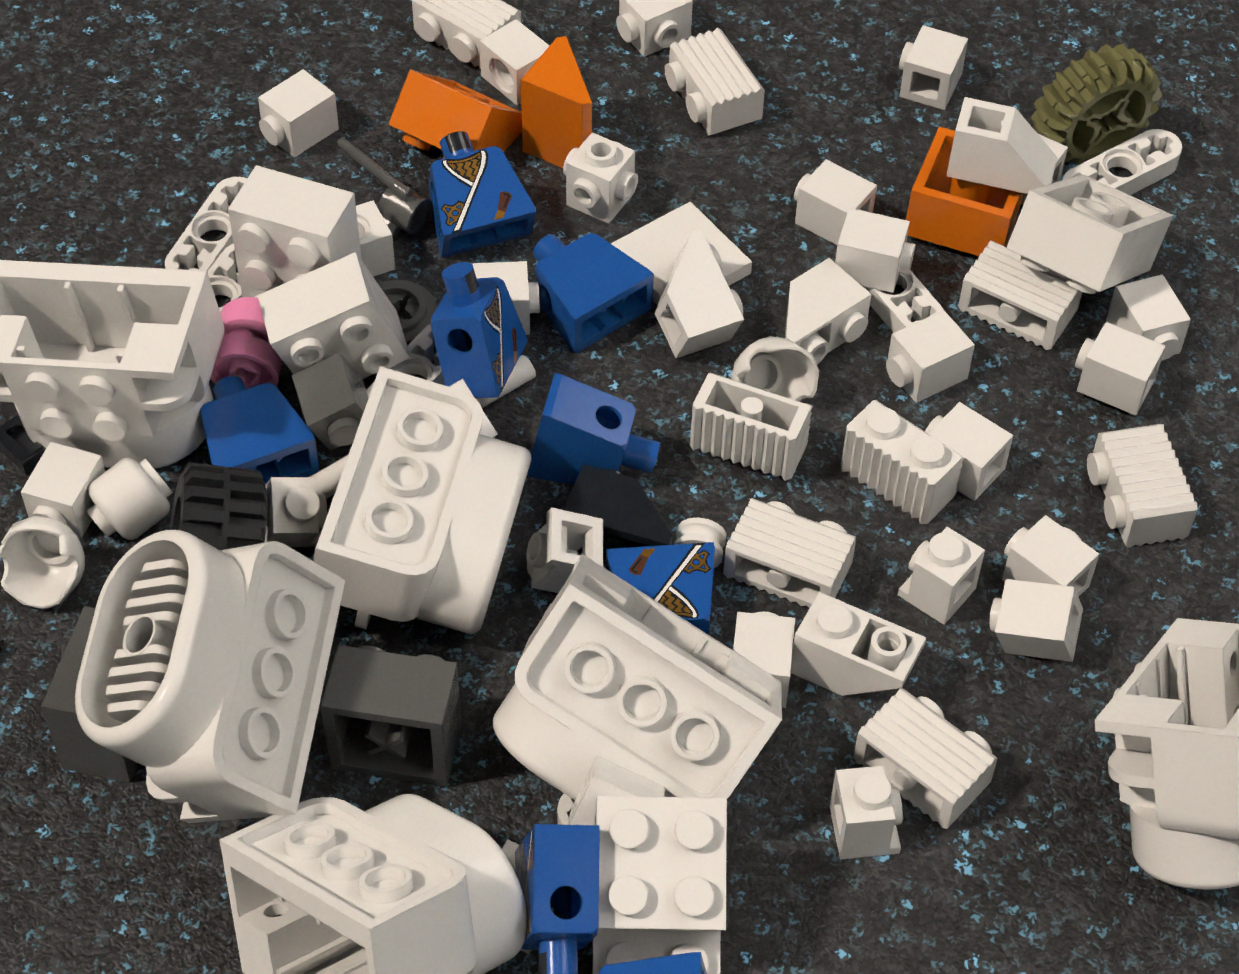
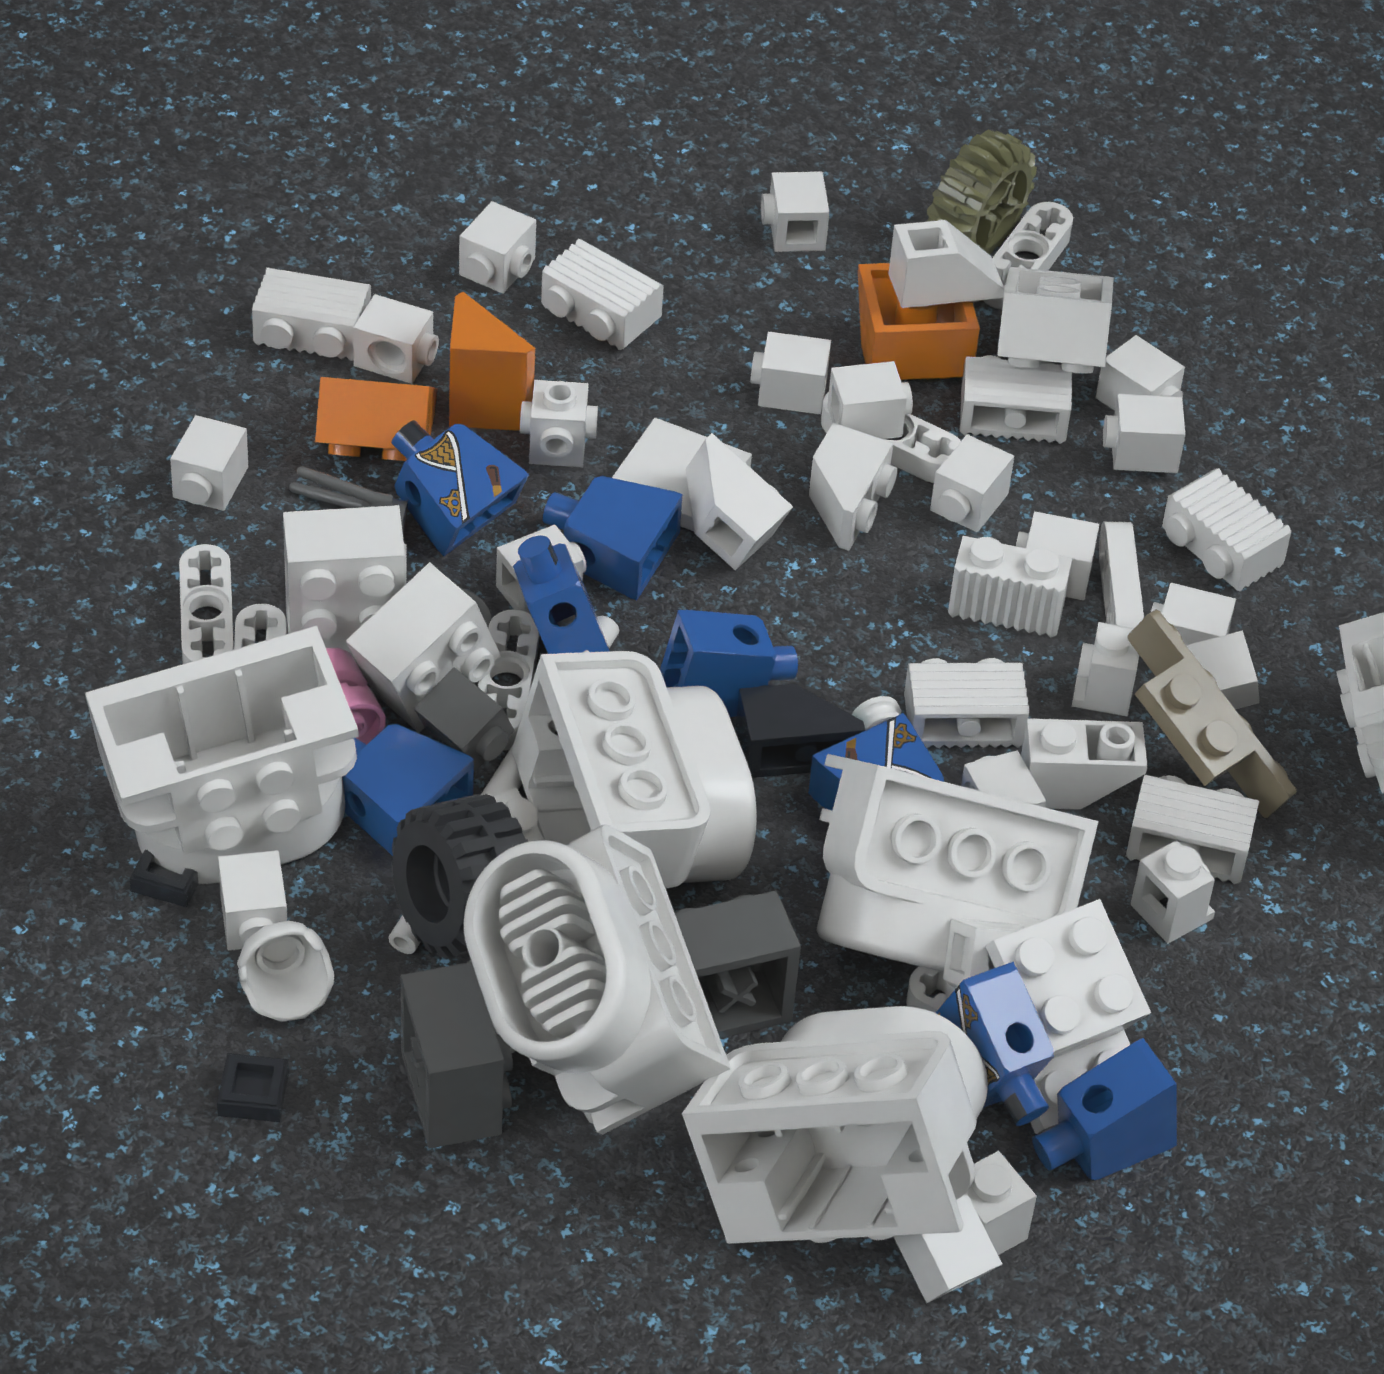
camera: 30 degrees left, 5 degrees down
(128, 499) = (323, 883): white head -> none
(555, 547) = (775, 786): white brick -> none
(750, 426) = (860, 602): white brick -> none
(778, 367) = (851, 548): white hair -> none
(978, 657) = (1201, 718): none -> dark tan bracket
(1009, 498) = (1120, 574): none -> white beam

